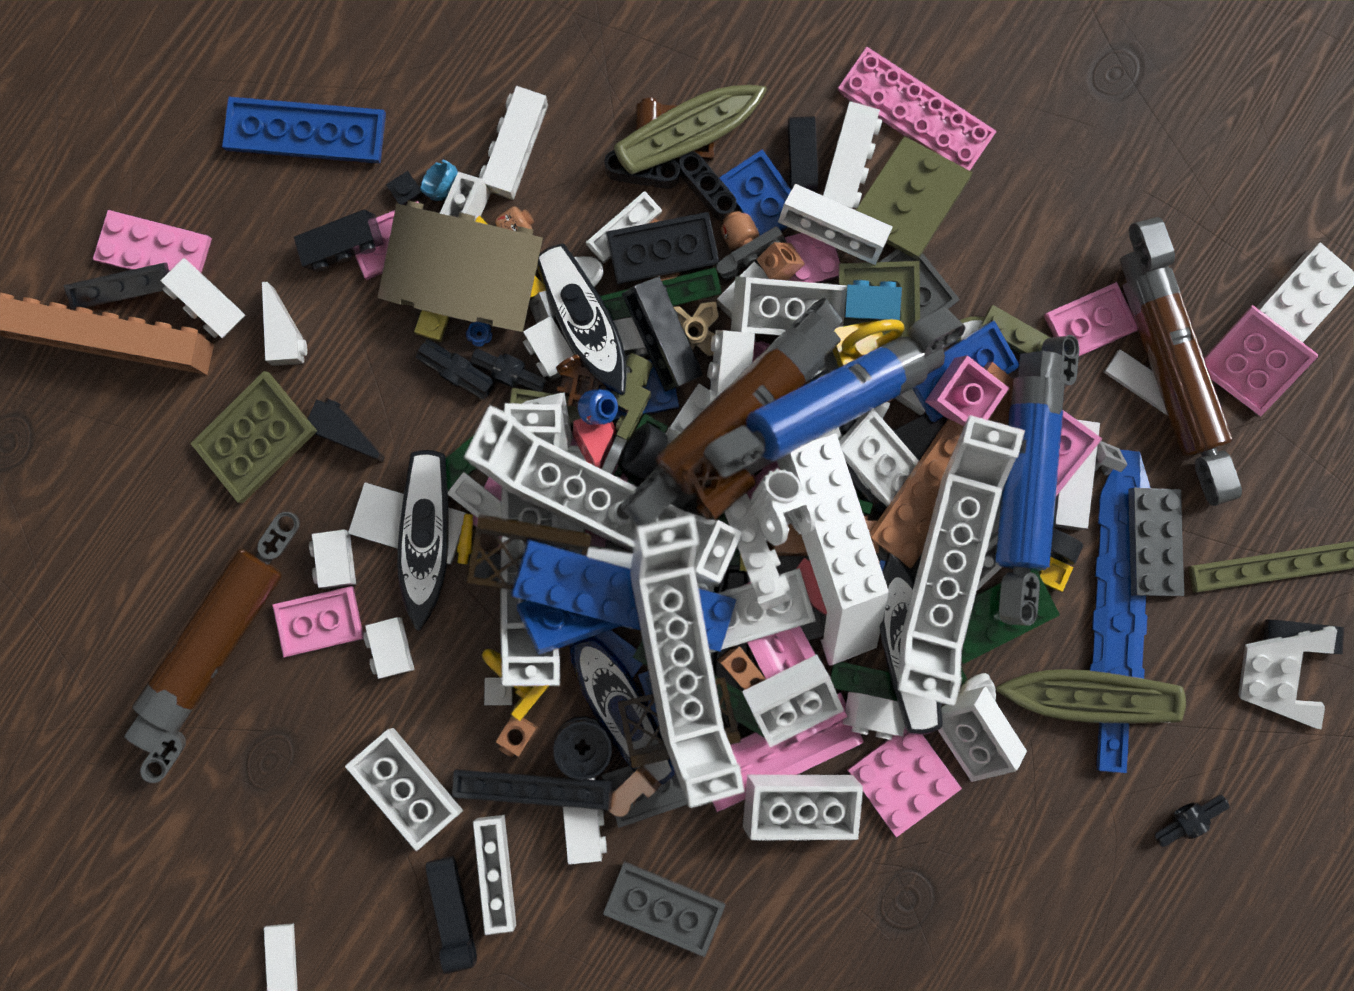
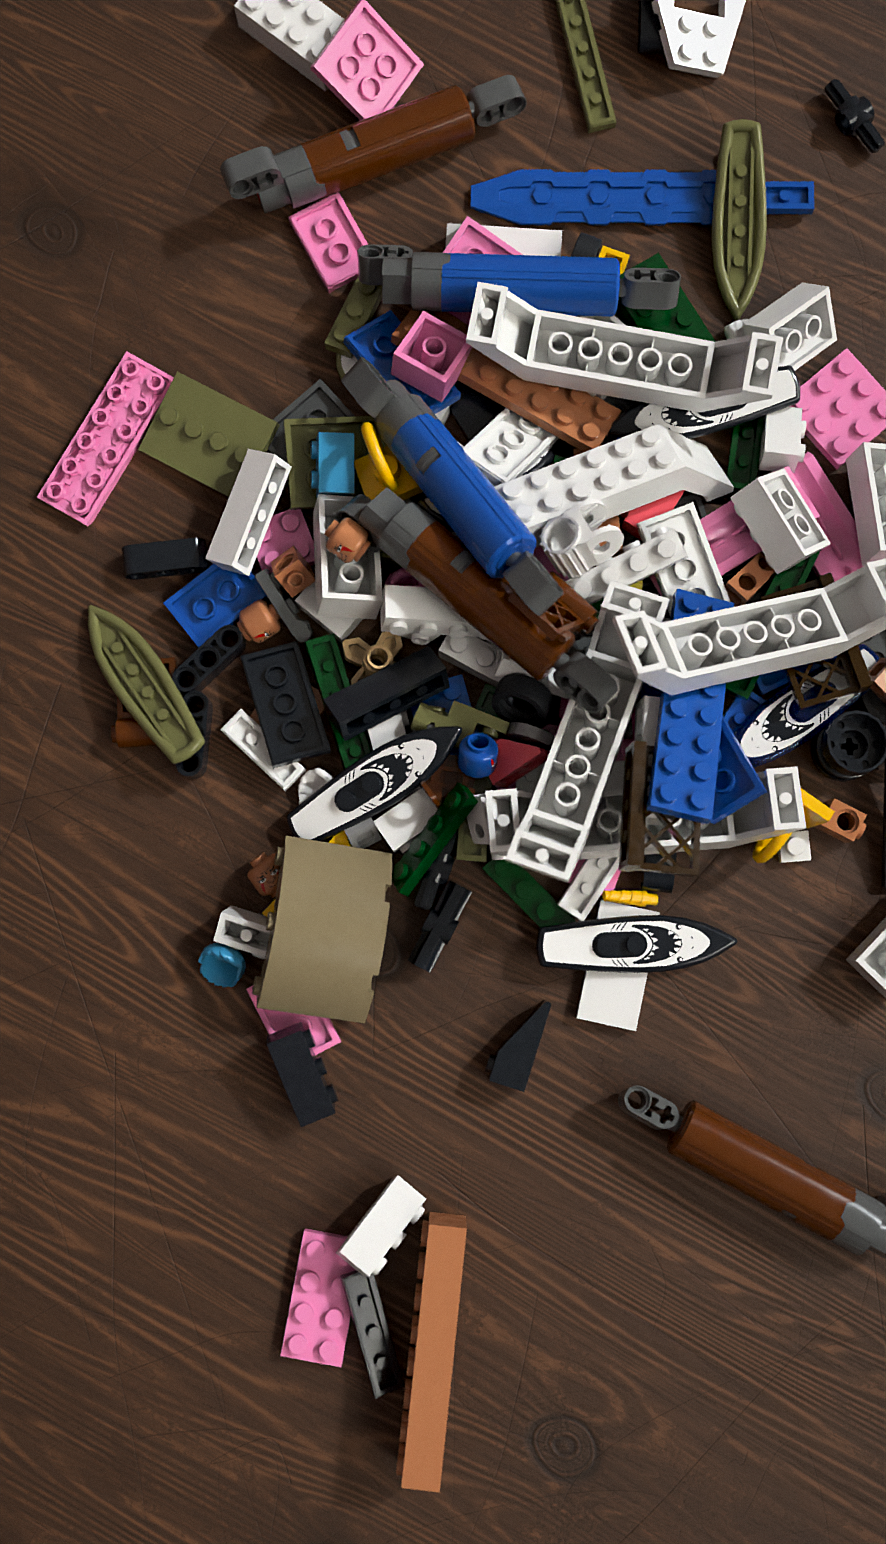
camera: 90 degrees left, 0 degrees up
(253, 437) = (537, 1150): olive plate -> none
(281, 337) = (416, 1130): white slope -> none
(304, 130) = (170, 1131): blue plate -> none
(318, 621) = (737, 1056): bright pink tile -> none
(332, 559) = (668, 1045): white brick -> none
(388, 648) = (760, 971): white brick -> none
(404, 188) = (232, 1005): black plate -> none
(431, 325) = (392, 960): light yellow plate -> none
(474, 328) = (404, 904): blue plate -> none
(514, 142) = (170, 882): white brick -> none
(529, 365) = (433, 838): none -> dark green plate
(797, 303) = (347, 540): none -> nougat head
(851, 154) = (164, 505): white brick -> none
(1110, 458) = (484, 211): light grey tile -> none
(1135, 378) = (391, 193): white tile -> none
(1156, 542) = (568, 163): dark grey plate -> none

